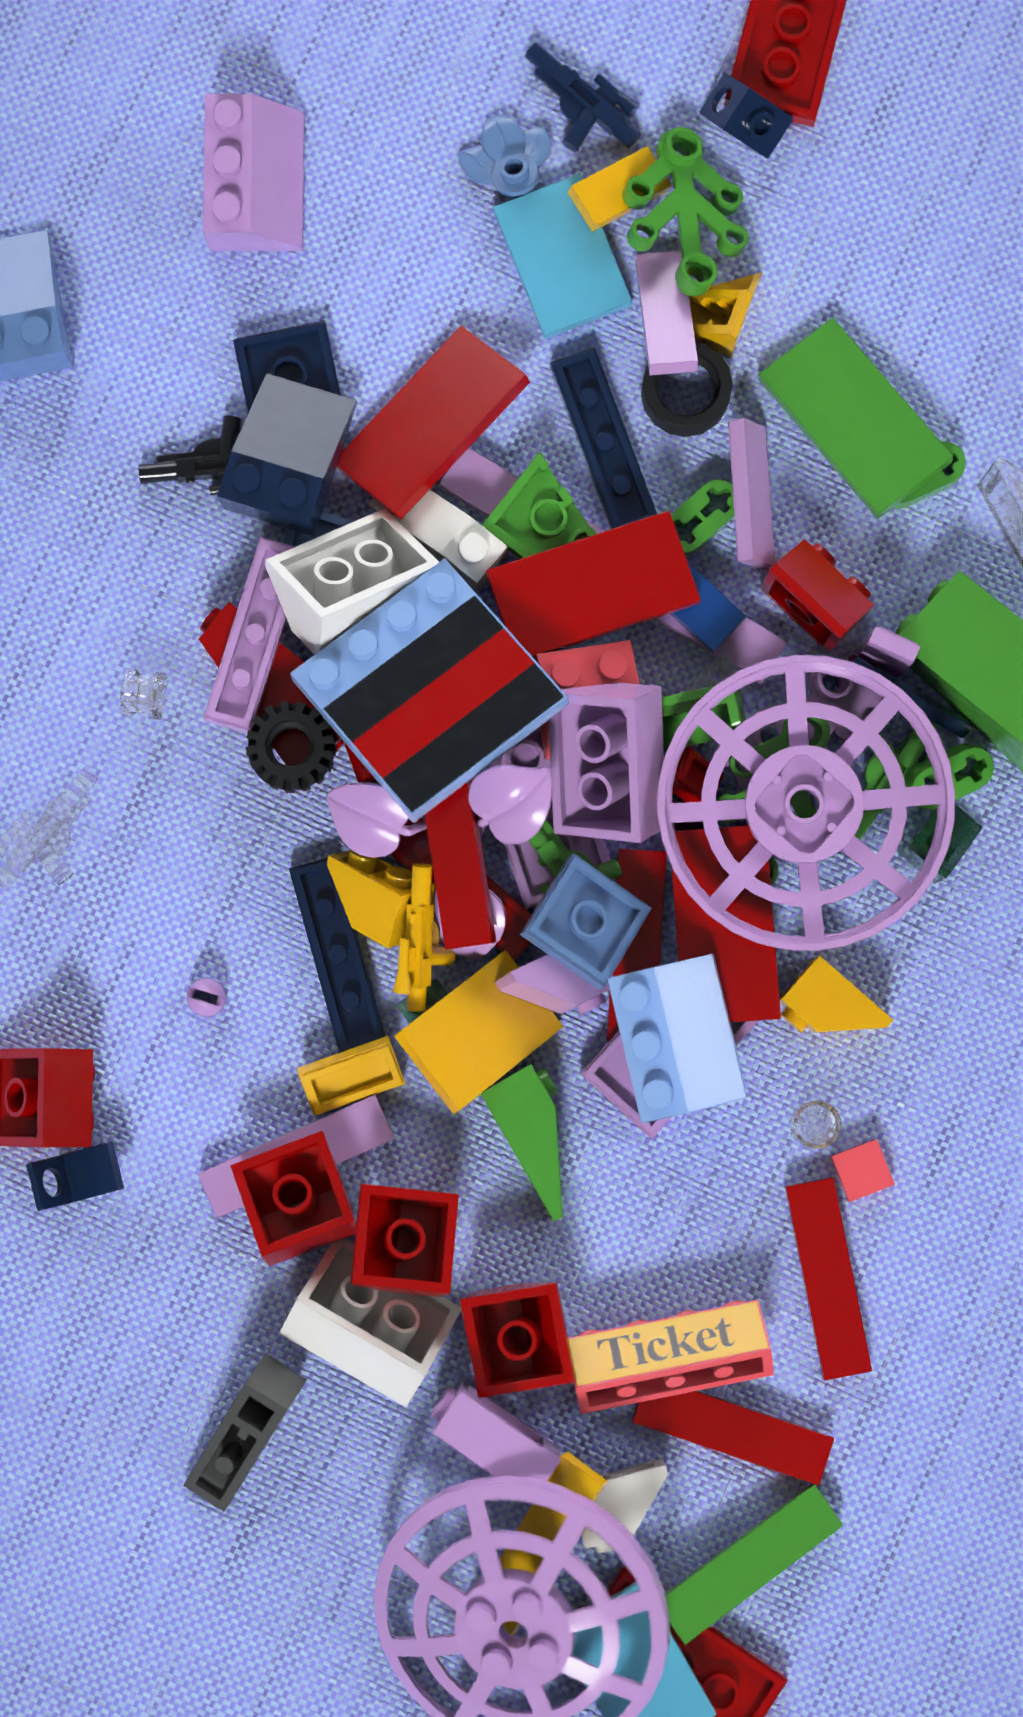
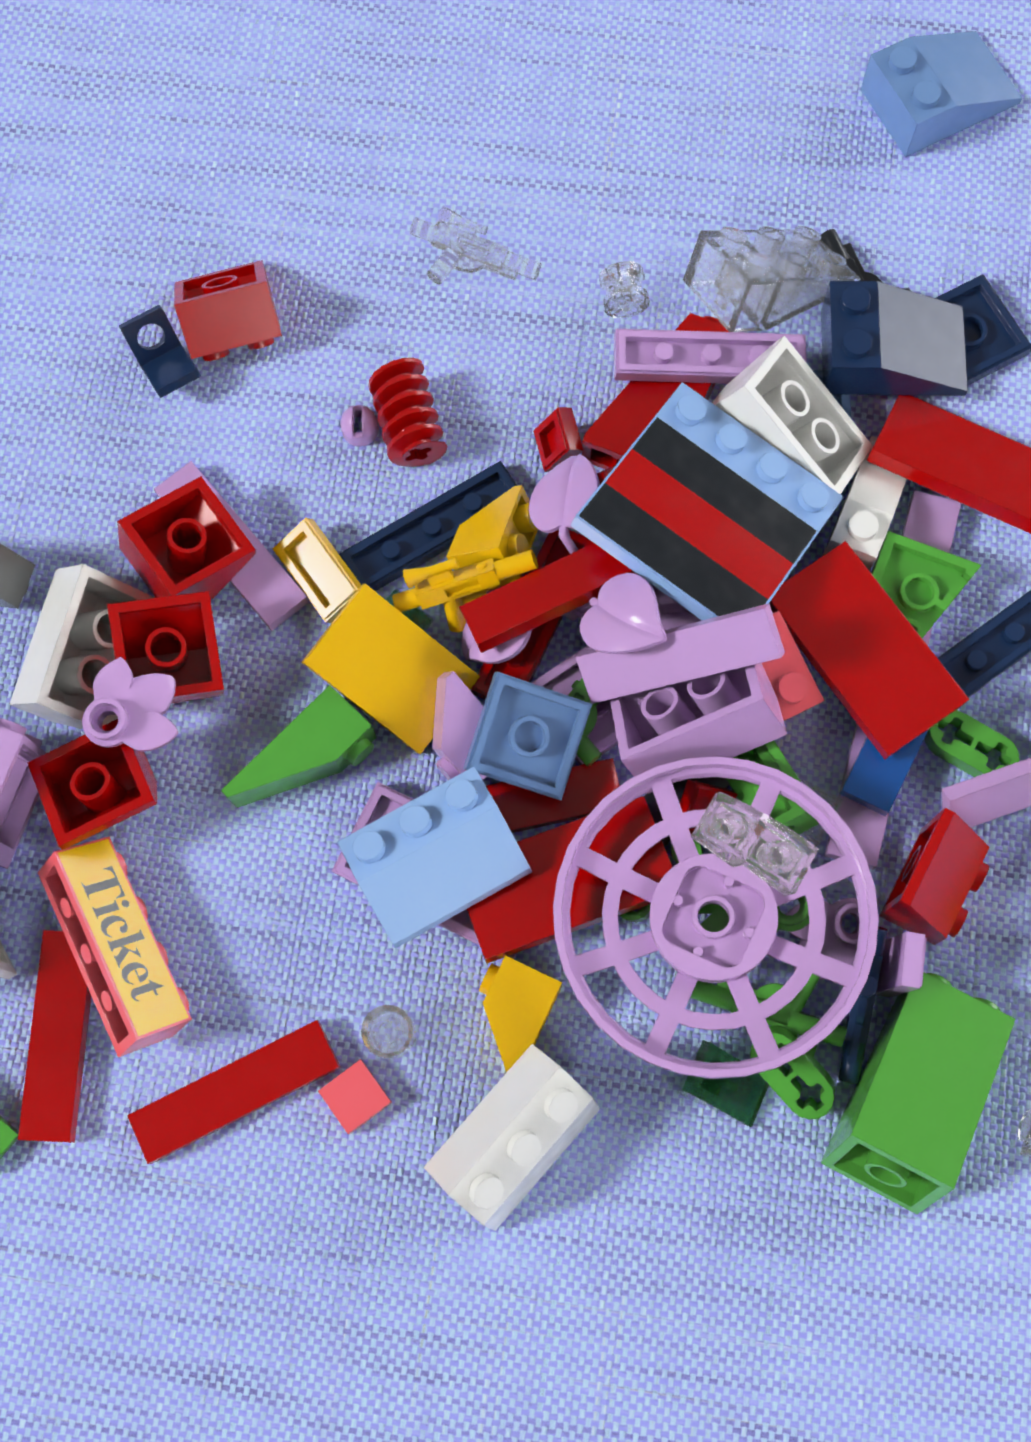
camera: 75 degrees right, 10 degrees down
(176, 550) = (762, 274): none -> clear slope
(214, 947) = (406, 413): none -> red piece
(274, 722) = (605, 389): black tyre -> none
(286, 809) = (558, 438): none -> red tile
(457, 1278) = (138, 705): none -> lavender plate
(564, 748) = (688, 654): none -> lavender tile
(759, 748) = (756, 841): none -> clear slope
(940, 1040) = (512, 1138): none -> white slope

